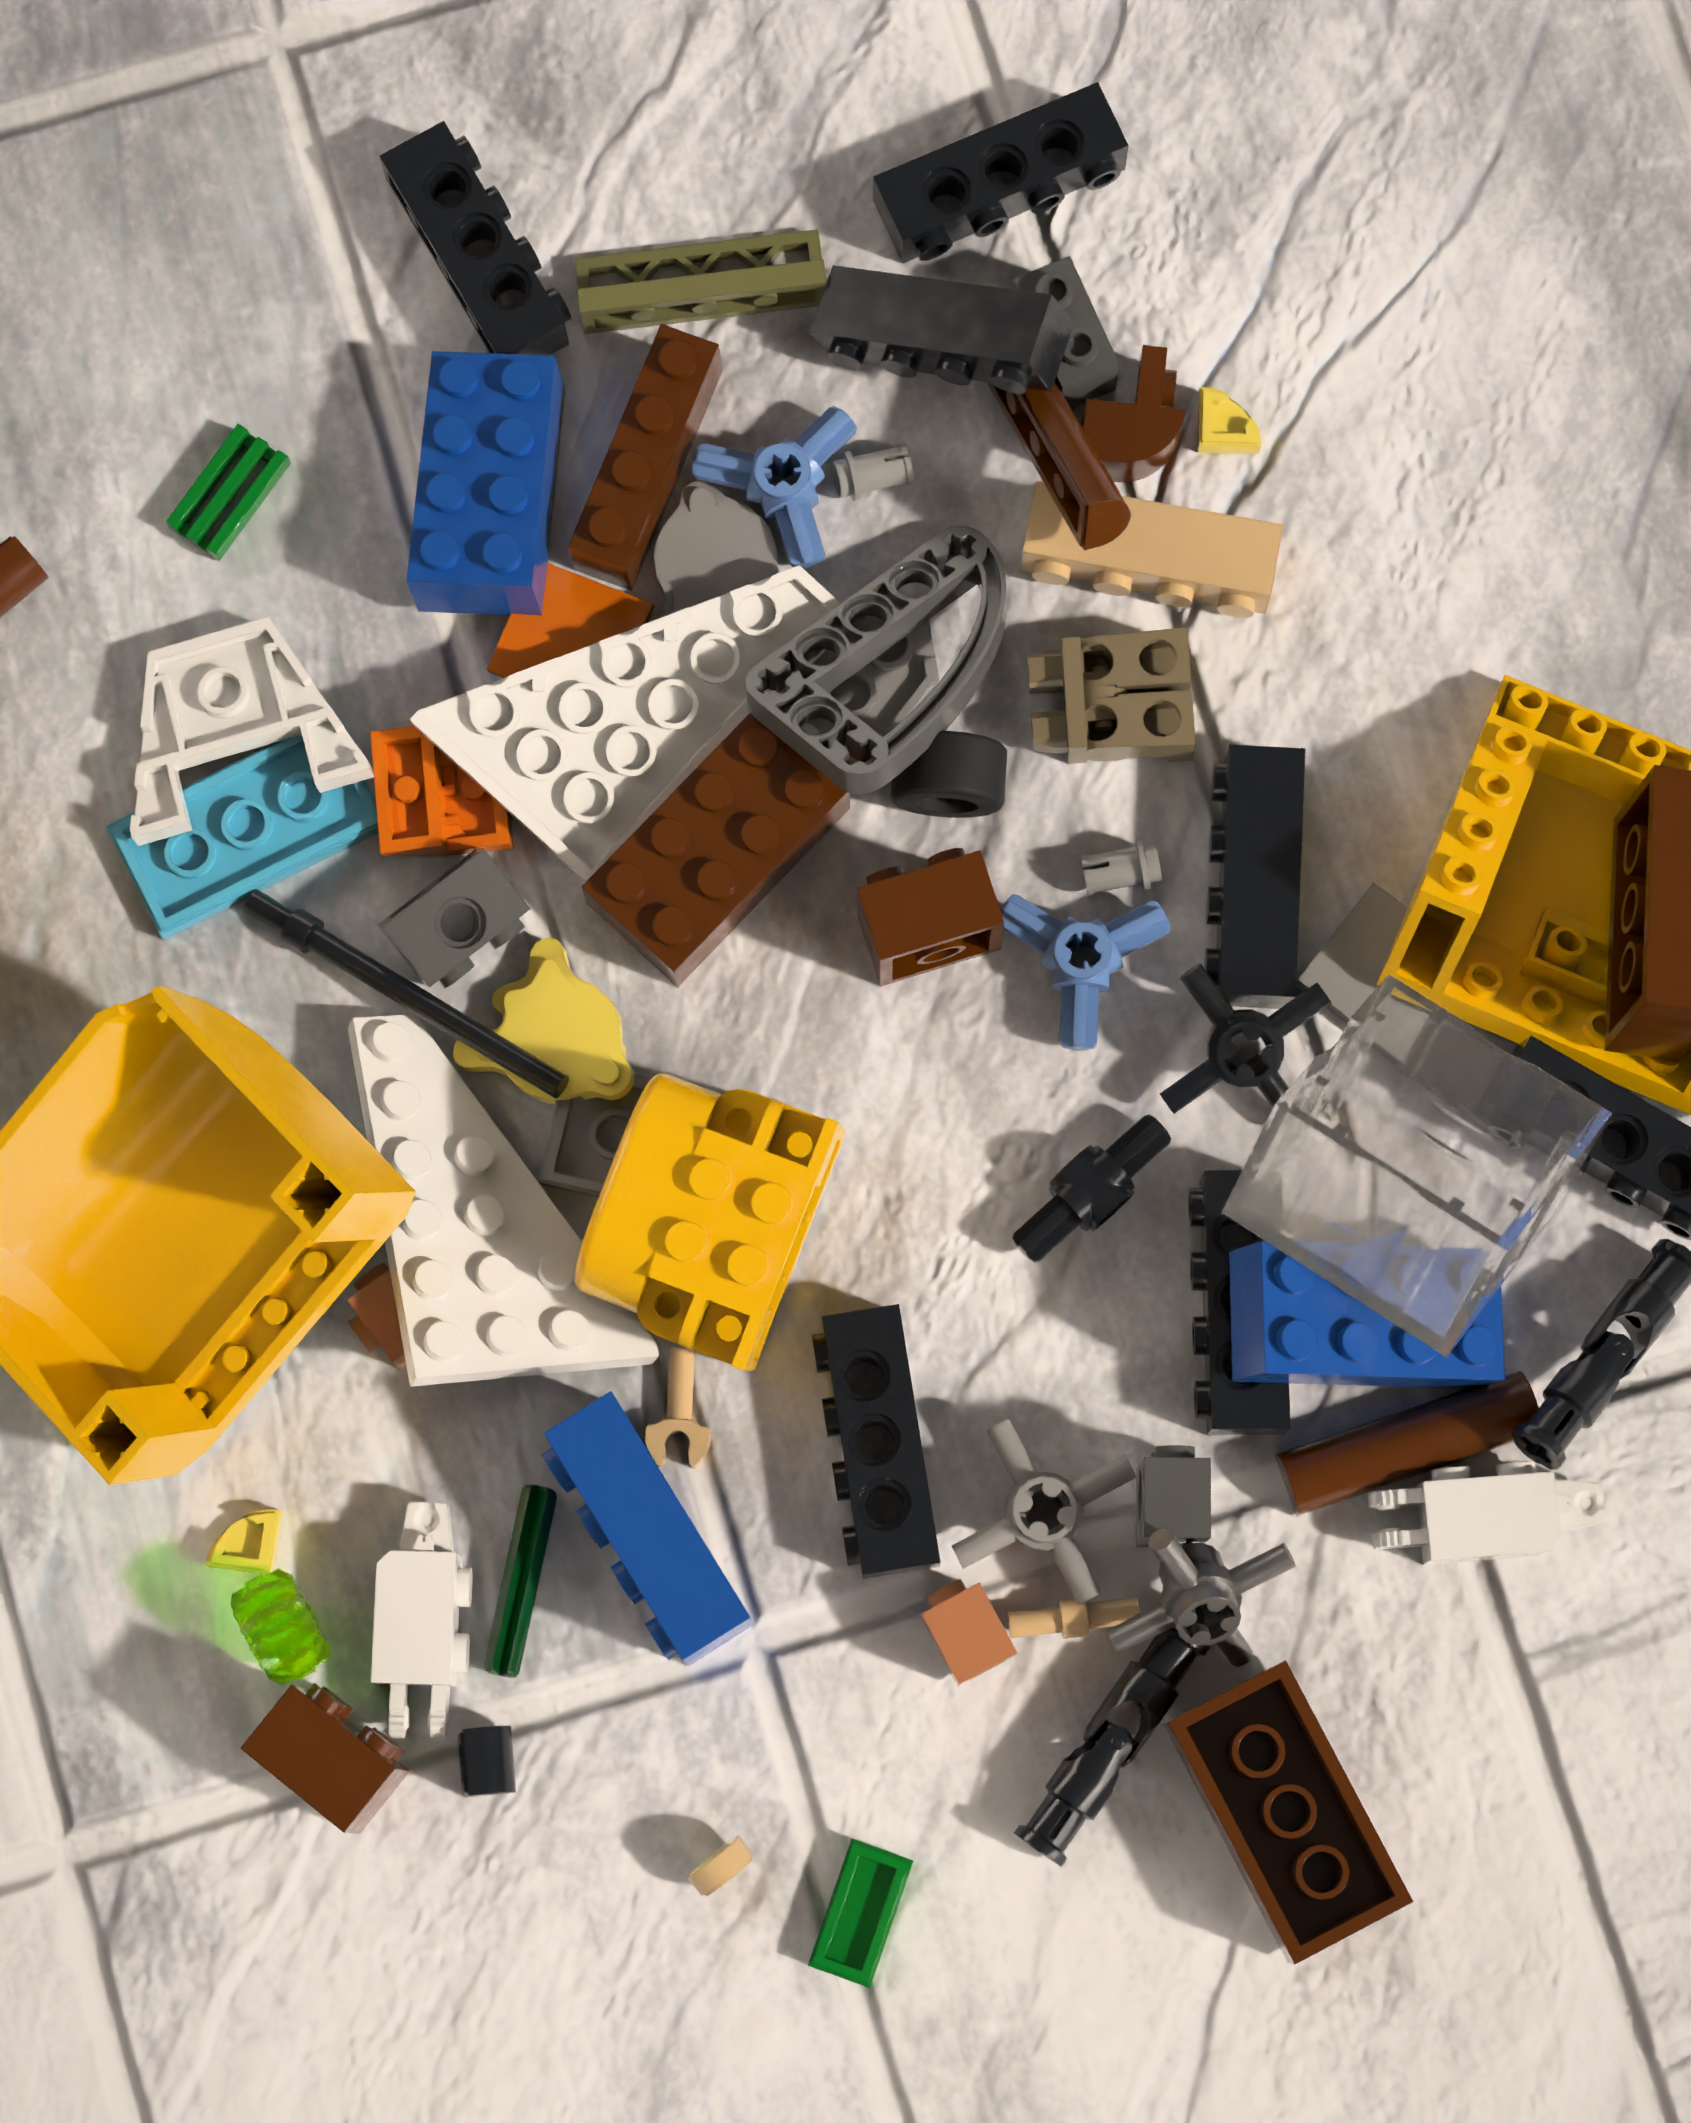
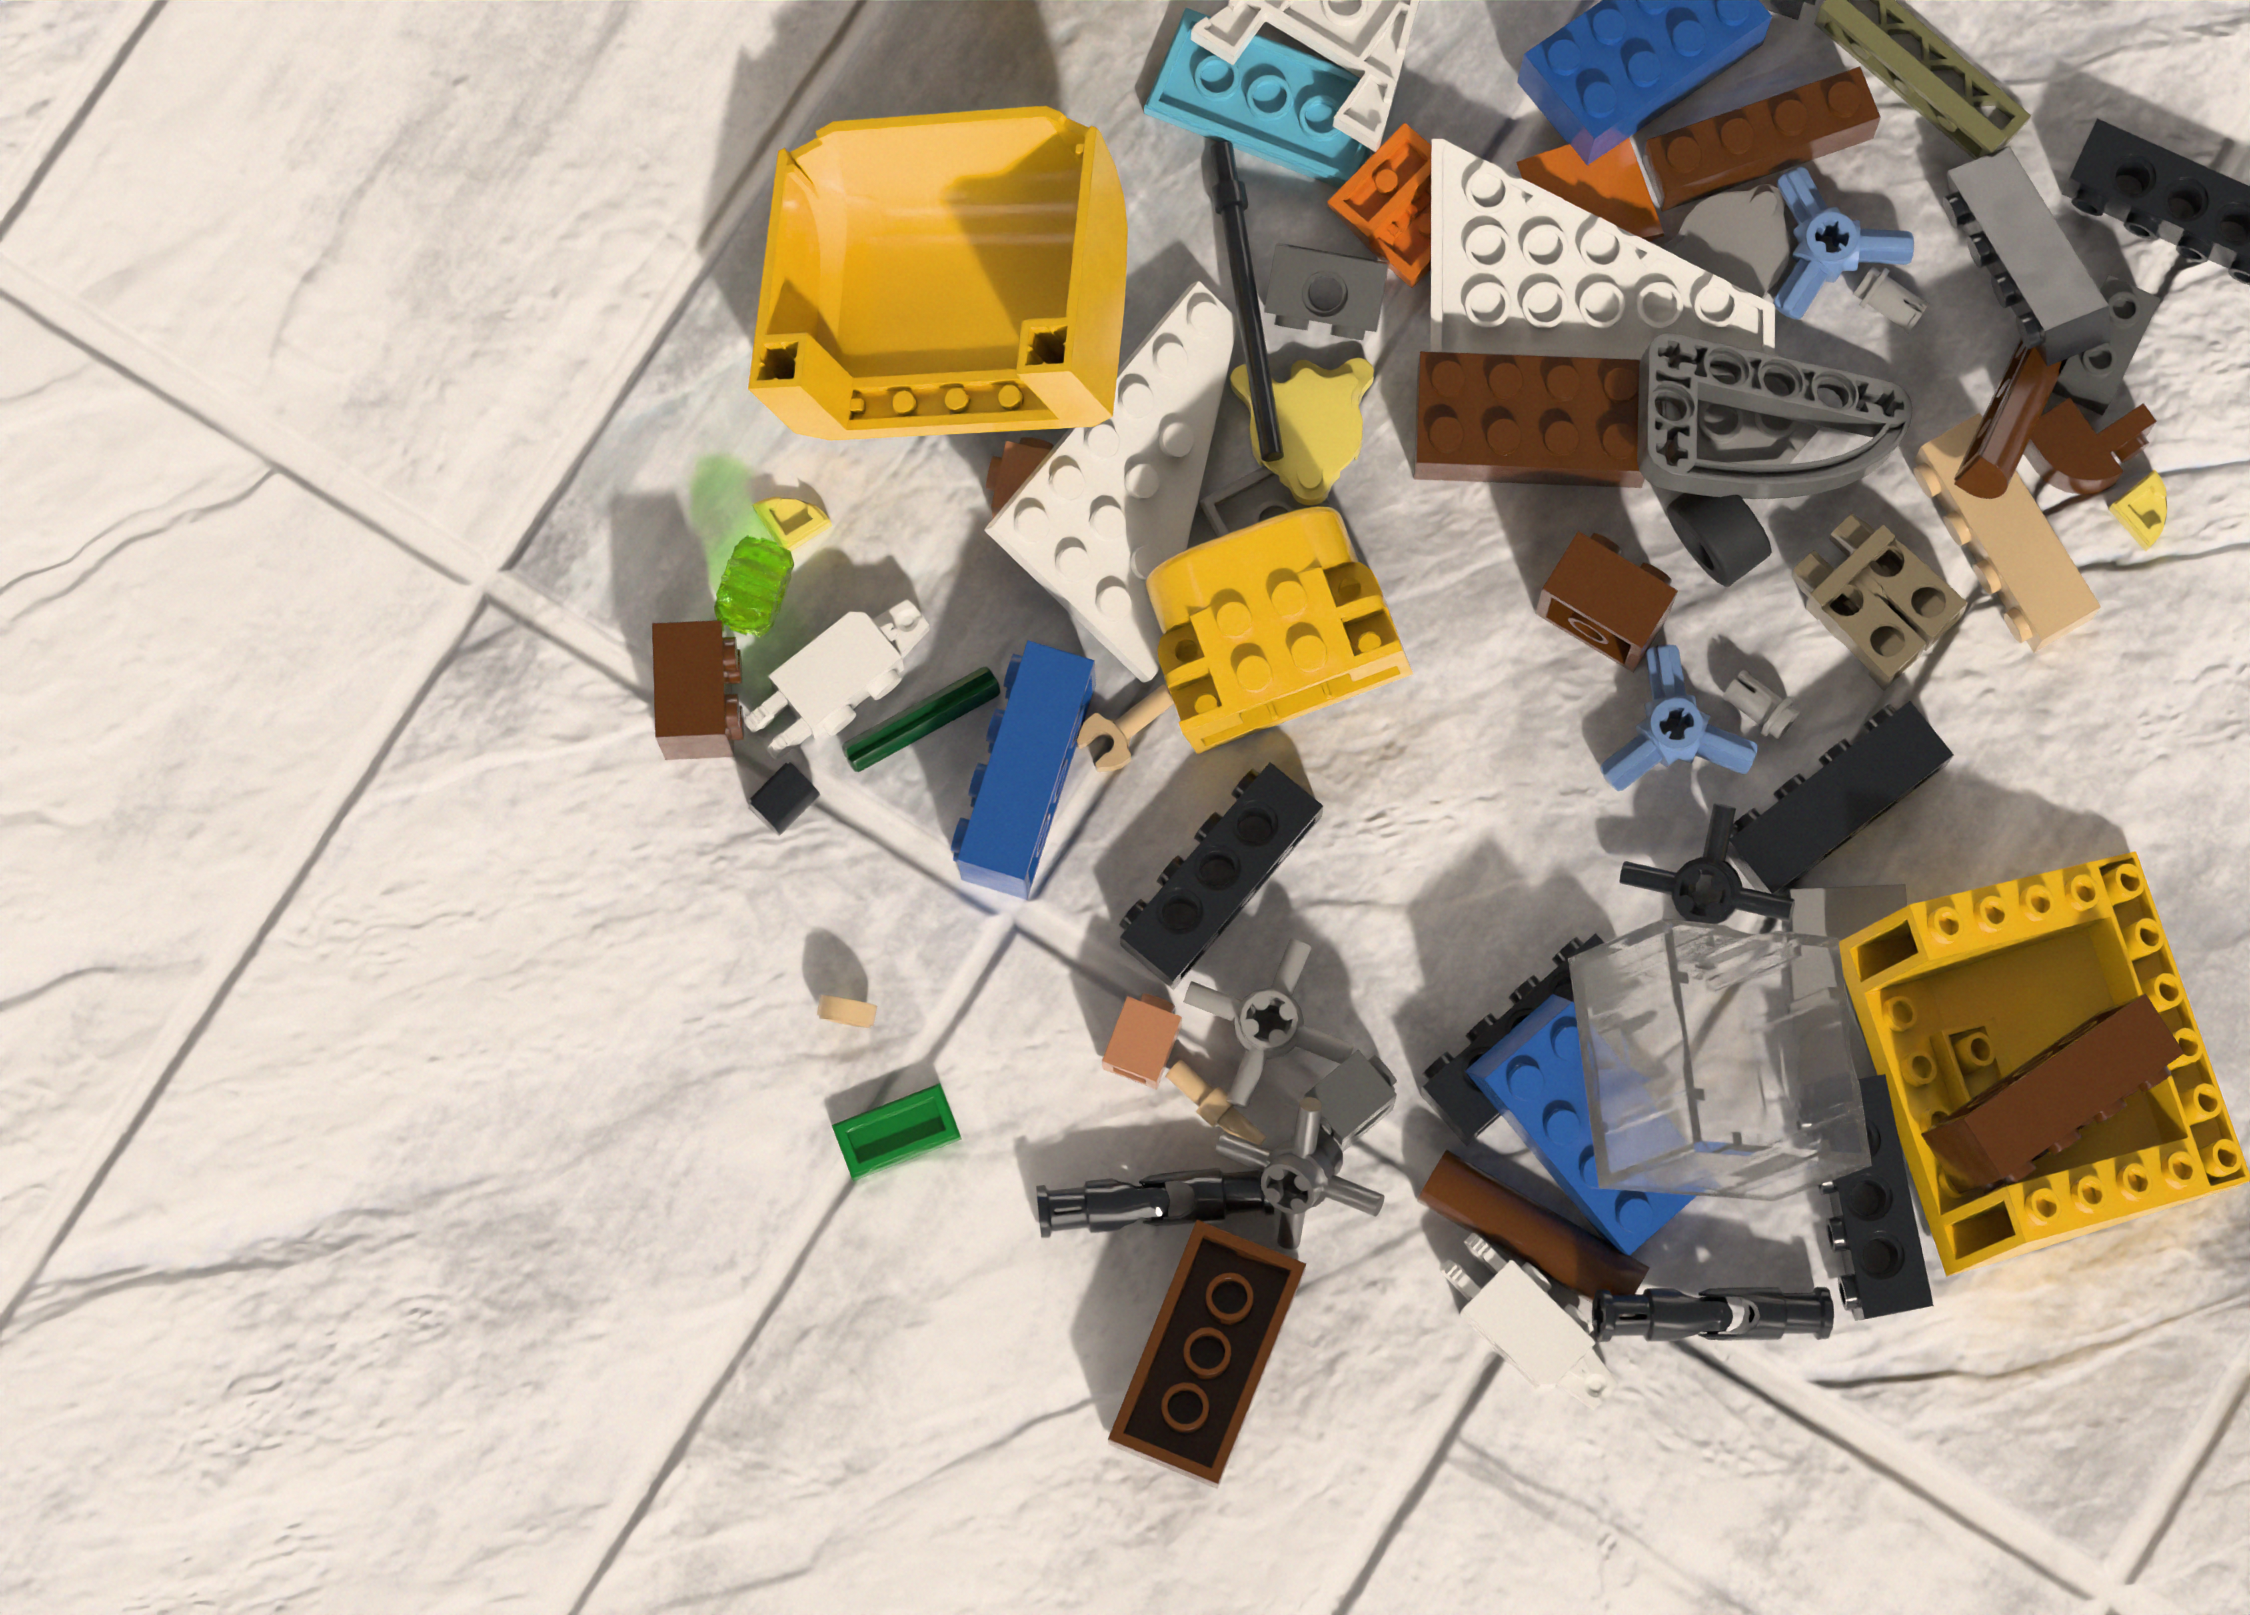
camera: 50 degrees right, 0 degrees up
(1091, 1188) = (1519, 871): black axle -> none

